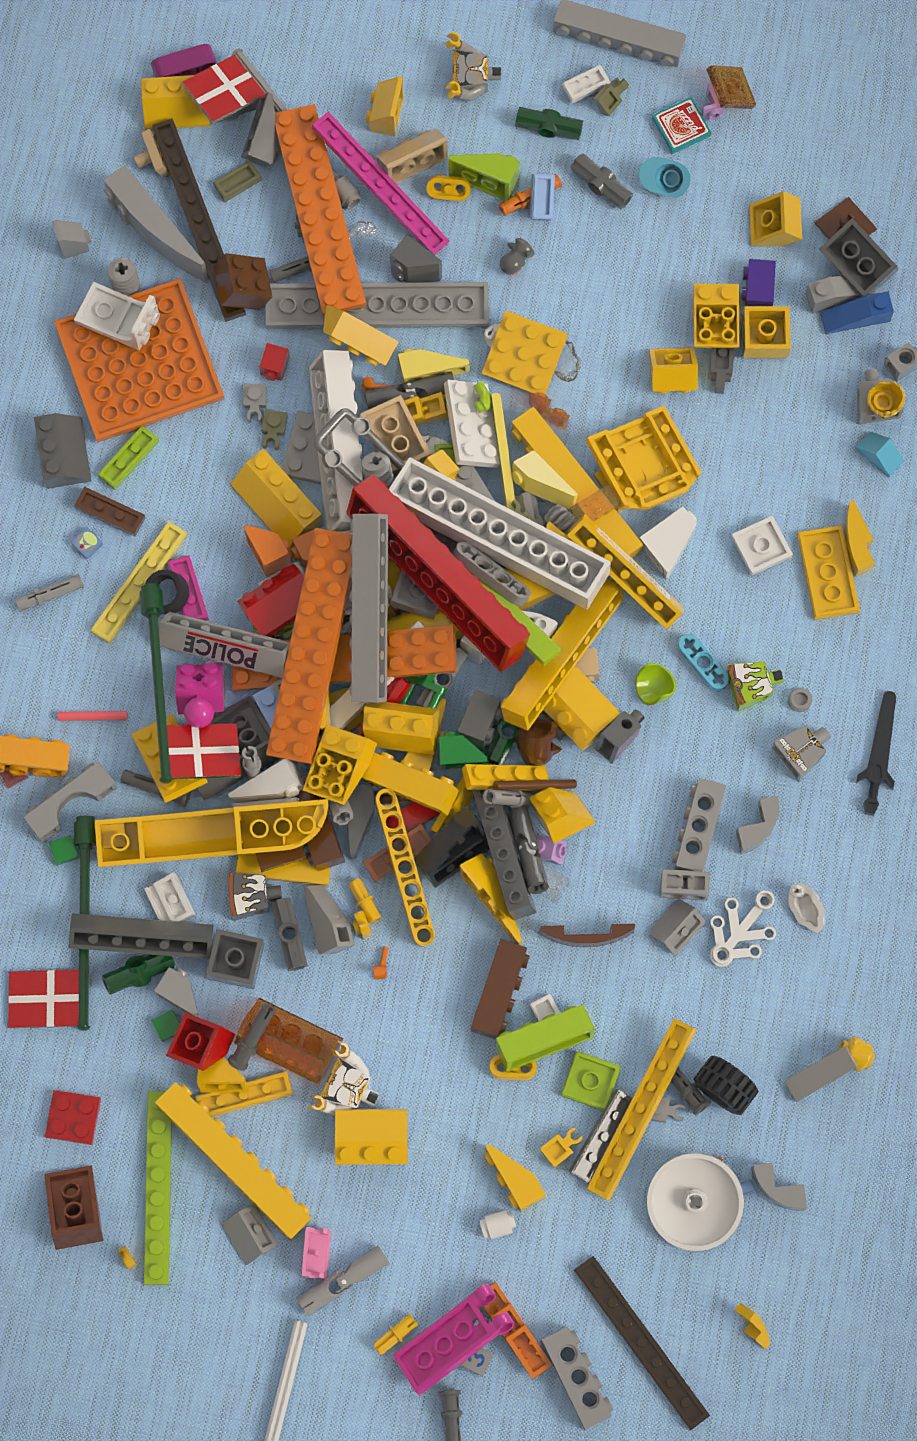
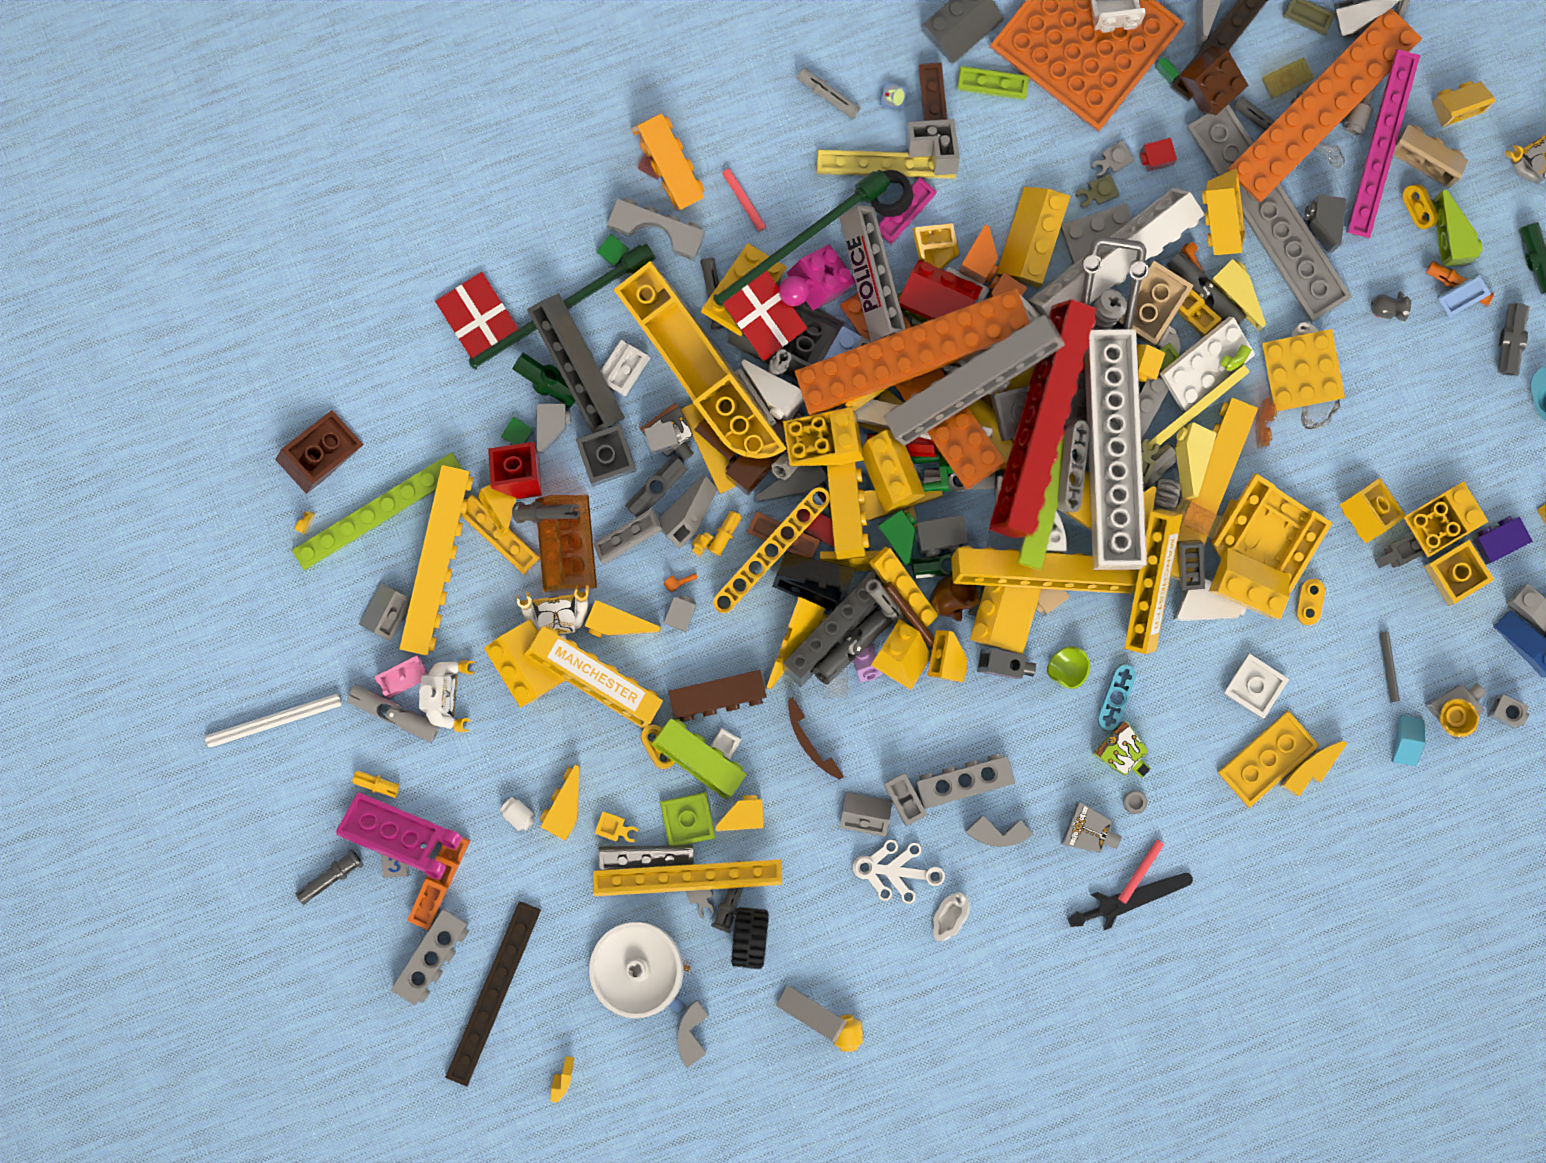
camera: 55 degrees right, 10 degrees up
(73, 1117) = (393, 403): red plate -> none
(148, 526) = (937, 140): none -> light grey brick
(209, 314) = (1167, 70): none -> green tile
(232, 580) = (936, 244): none -> yellow slope
(251, 899) = (662, 437): none -> light grey brick
(277, 227) = (1287, 78): none -> clear yellow plate
(316, 983) = (627, 536): none -> light grey tile
(351, 1228) = (439, 694): none -> white torso
(382, 1039) = (614, 622): none -> yellow slope
(410, 979) = (680, 613): none -> light grey brick
(419, 1084) = (593, 677): none -> yellow brick
(586, 778) = (947, 658): none -> yellow slope
(616, 1027) = (743, 815): none -> yellow slope
(625, 523) = (1199, 554): none -> dark grey slope
(677, 496) = (1251, 584): none -> yellow slope
(717, 462) = (1309, 601): none -> yellow plate
(809, 432) = (1389, 666): none -> dark grey bar
(861, 729) = (1141, 871): none -> coral bar

